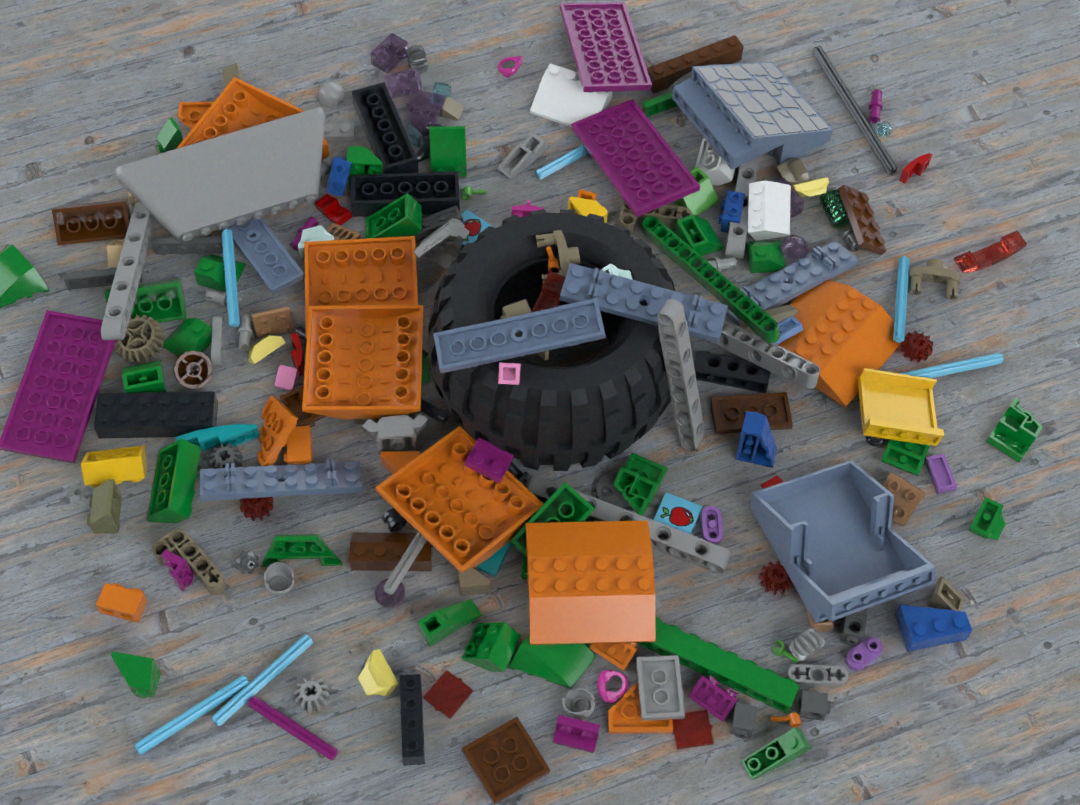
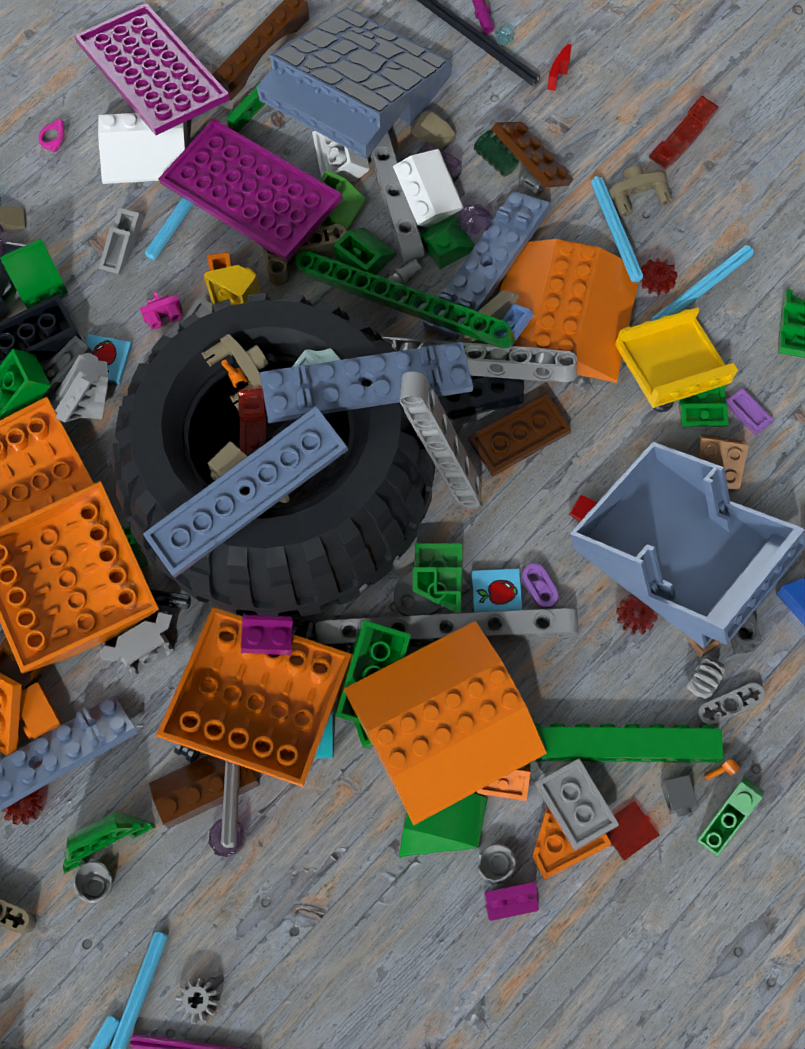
camera: 20 degrees left, 10 degrees up
(247, 562) = (45, 879): dark grey plant -> none
(377, 676) = (259, 941): light yellow slope -> none
(396, 460) = (163, 675): orange slope -> none
(412, 720) = (324, 974): black brick -> none
(447, 621) = (308, 837): green slope -> none
(448, 694) = (348, 921): clear red piece -> none
(468, 192) = (79, 311): bright green hand -> none
(473, 583) = (316, 780): dark tan slope -> none
(491, 646) = (370, 844): green slope -> none
(505, 760) = (449, 968): reddish brown plate -> none
(509, 373) = (255, 540): bright pink slope -> none
(609, 696) = (508, 819): dark pink piece -> none
(714, 697) = (636, 783): magenta bracket -> none
(732, 209) = (387, 204): blue bracket -> none
(756, 441) = (542, 468): blue wedge -> none
(778, 652) = (685, 695): bright green hand -> none
(811, 187) = (461, 139): light yellow slope -> none
(814, 705) = (744, 741): dark grey brick -> none
(865, 653) = (766, 654): medium lavender plate -> none

